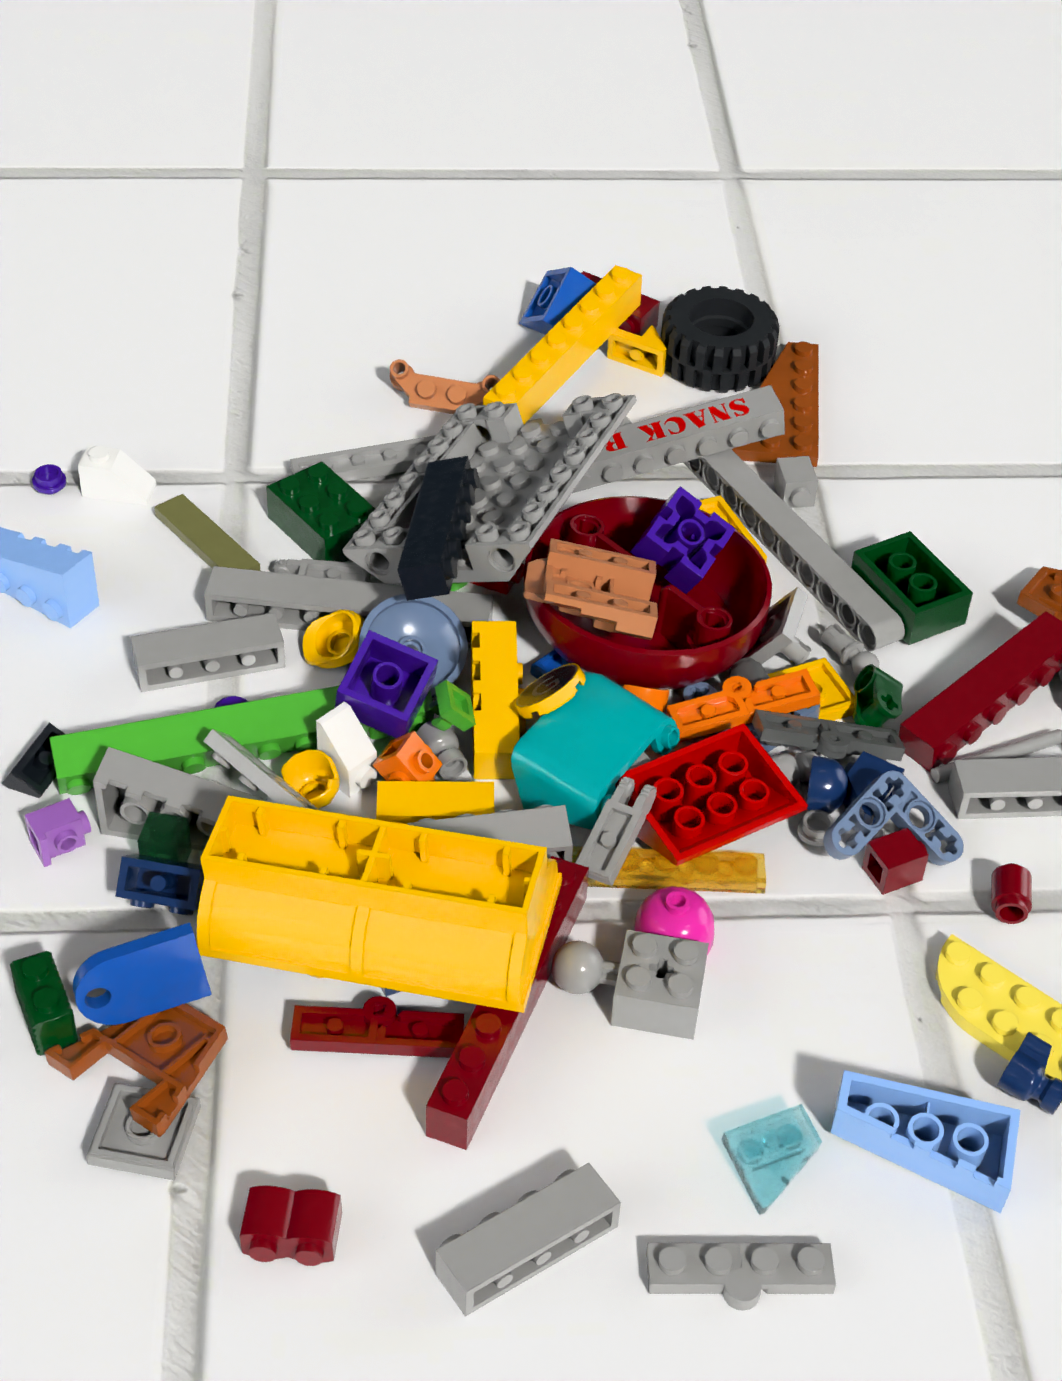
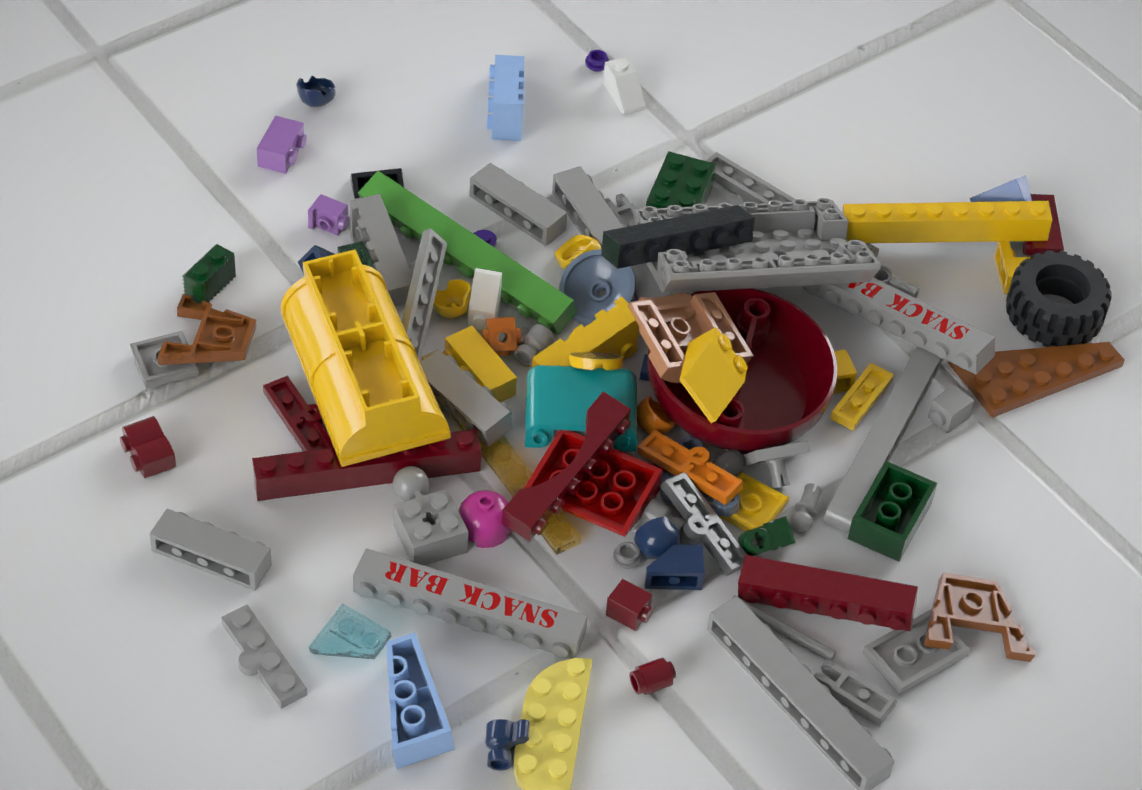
camera: 55 degrees right, 5 degrees up
(142, 977) = (241, 298): blue tile -> none
(203, 535) = (615, 154): olive tile -> none
(387, 684) = (533, 285): dark purple brick -> none
(436, 392) = (851, 182): nougat plate -> none
(452, 707) = (551, 326): bright green tile -> none
(615, 831) = (519, 448): light grey hinge -> none
(660, 733) = (533, 506): none -> dark red arch
(675, 591) = (712, 372): none -> yellow slope
(683, 540) = (780, 351): dark purple brick -> none
(795, 1009) = (470, 604): none -> light grey brick
(897, 809) = (661, 582): sand blue beam -> none

